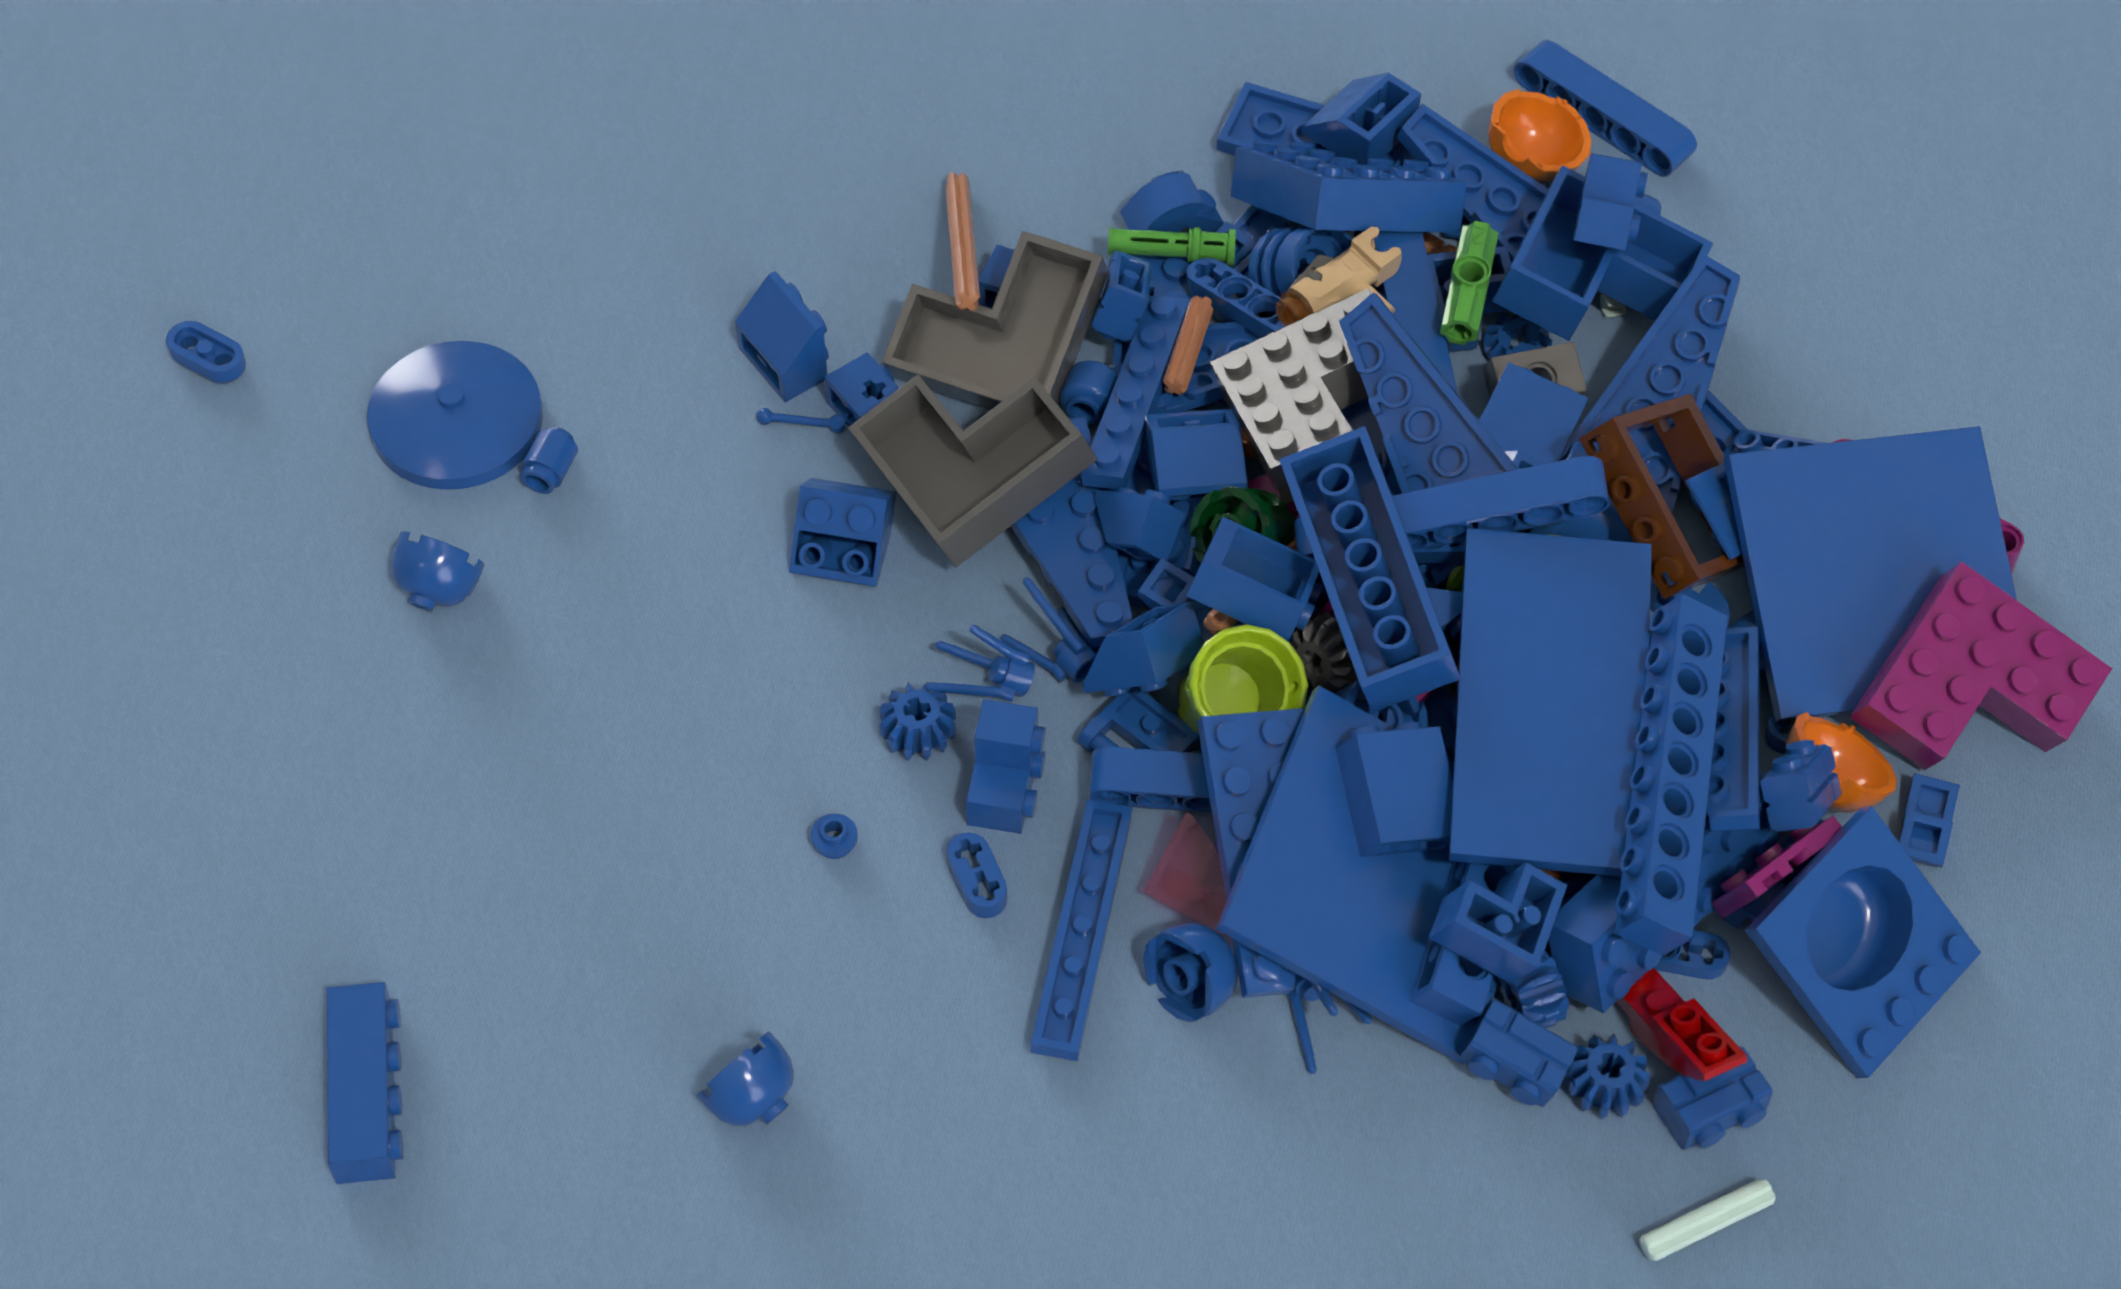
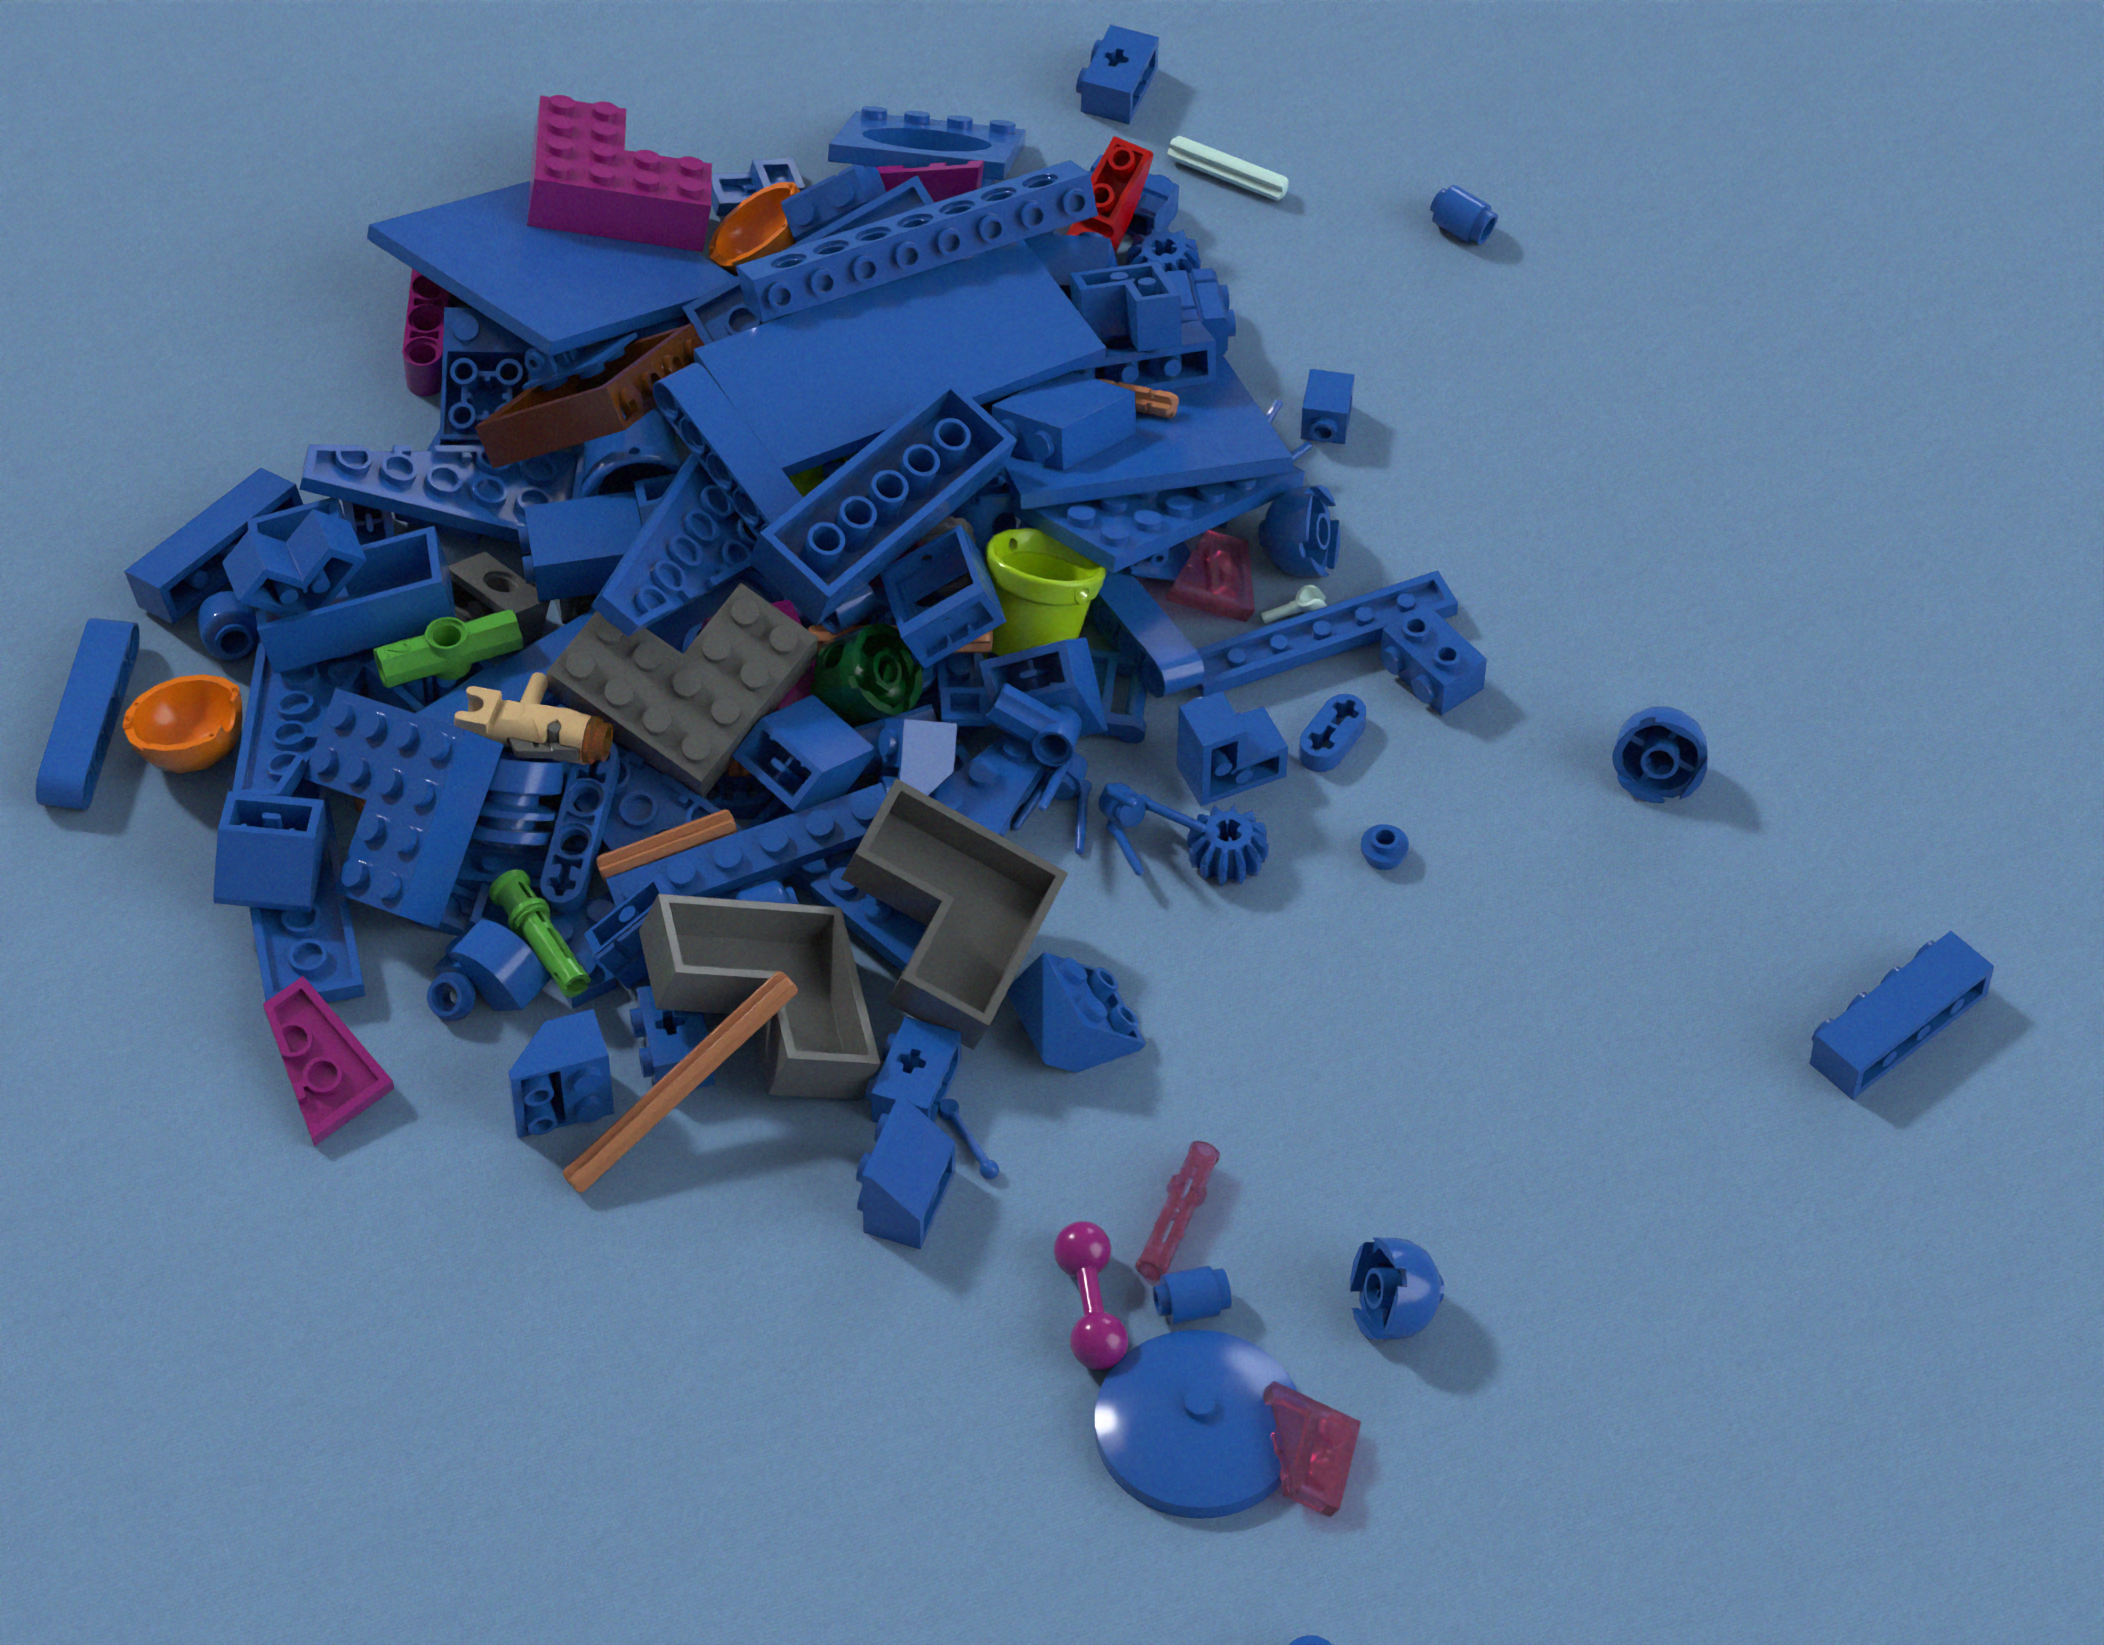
camera: 125 degrees left, 5 degrees down
(369, 453) = (1312, 1447): none -> clear pink wing
(637, 414) = (1098, 1337): none -> magenta piece
(649, 526) = (1196, 1166): none -> clear pink pin
(988, 987) = (1432, 659): none -> blue brick
(1030, 189) = (561, 1076): none -> blue slope
(1114, 609) = (1036, 724): none -> blue piece
(1125, 936) = (1307, 600): none -> light aqua hand
(1162, 94) = (323, 1060): none -> magenta wing
(1333, 1094) = (1327, 406): none -> blue brick
(1409, 890) = (1150, 401): none -> nougat axle
(1706, 205) = (189, 562): none -> blue brick
(1893, 1196) = (1118, 74): none -> blue brick

